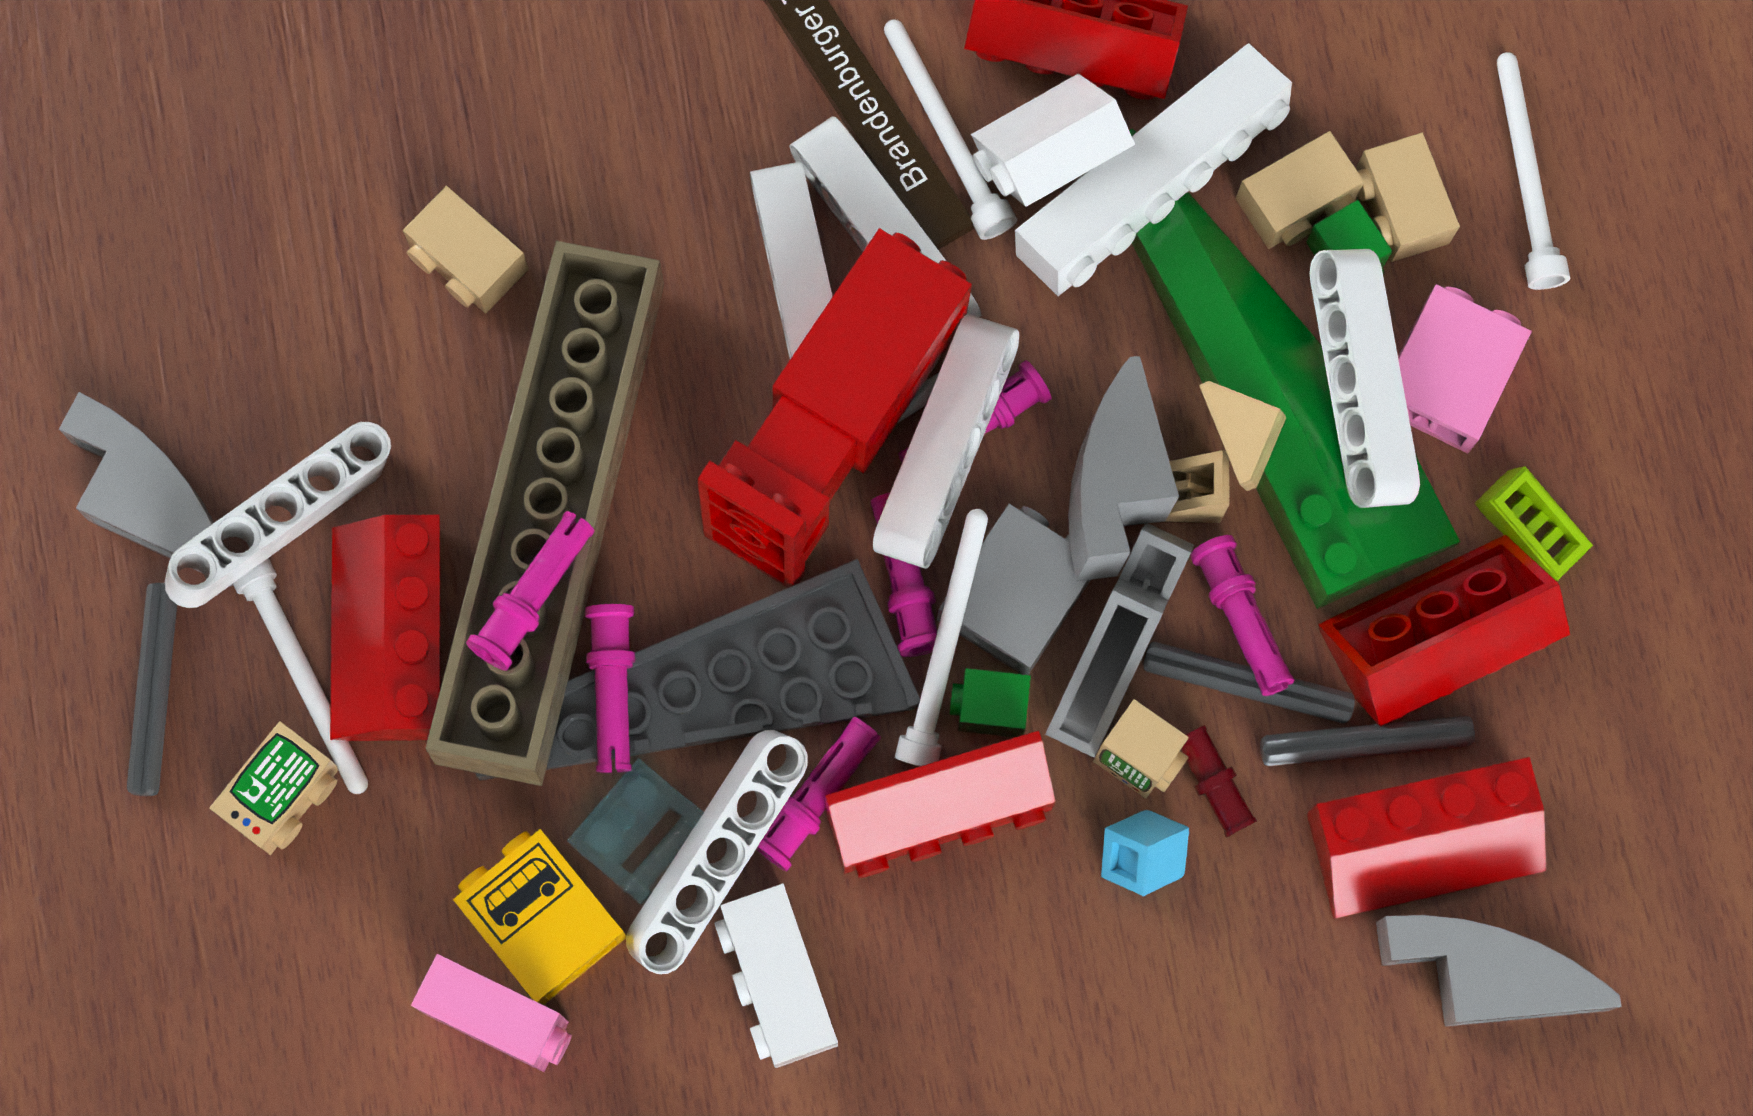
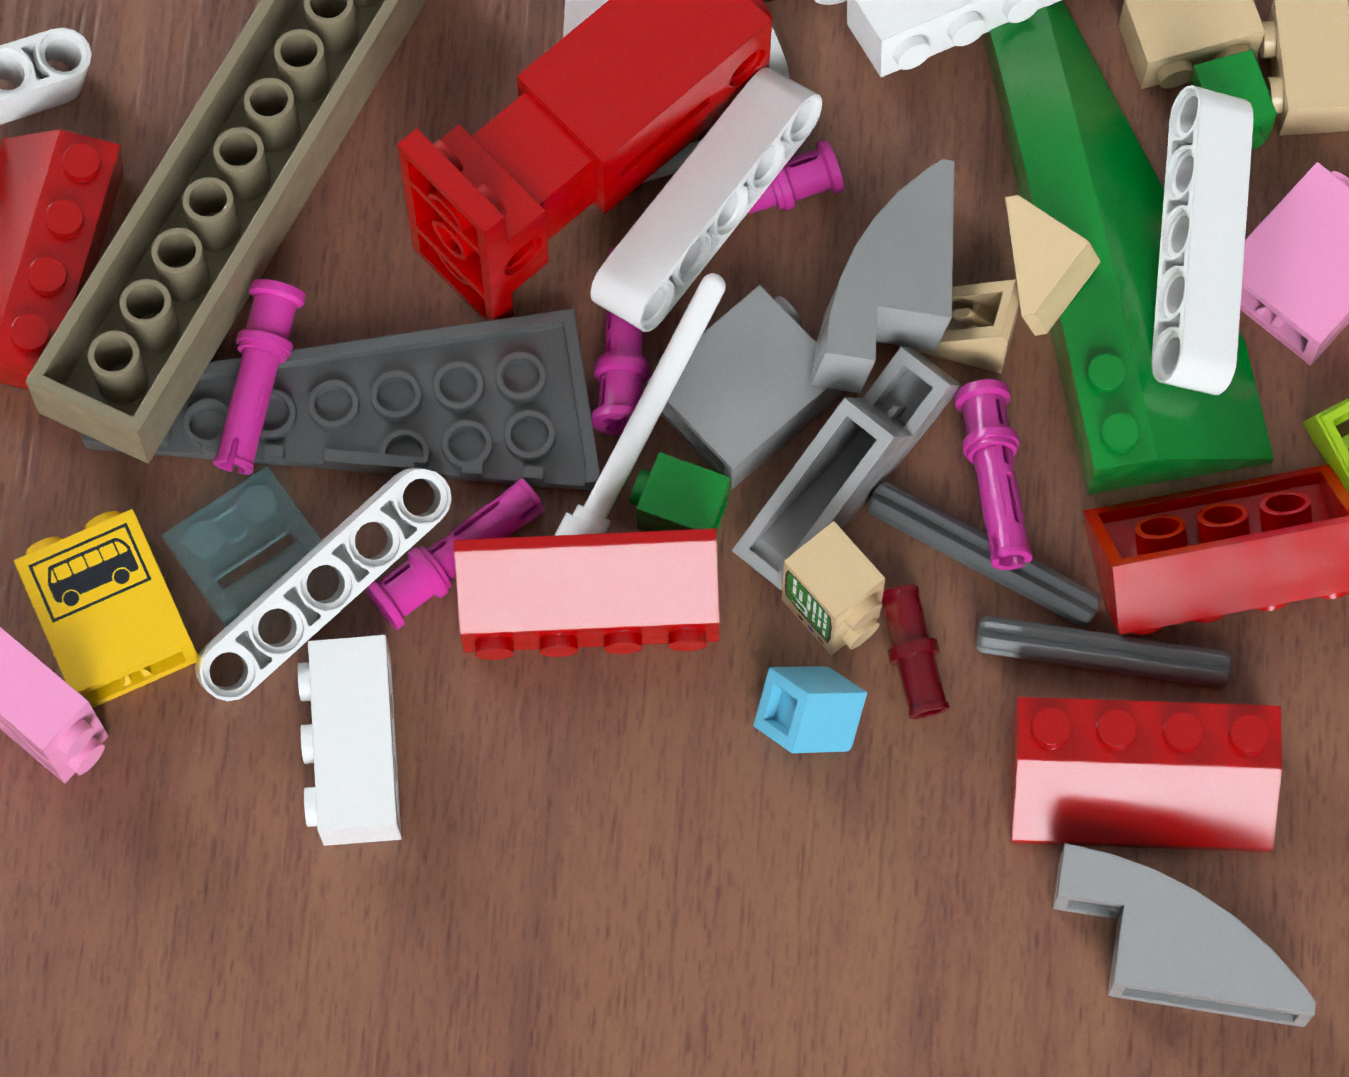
camera: 20 degrees right, 5 degrees down
(517, 611) = (169, 255): dark pink pin -> none

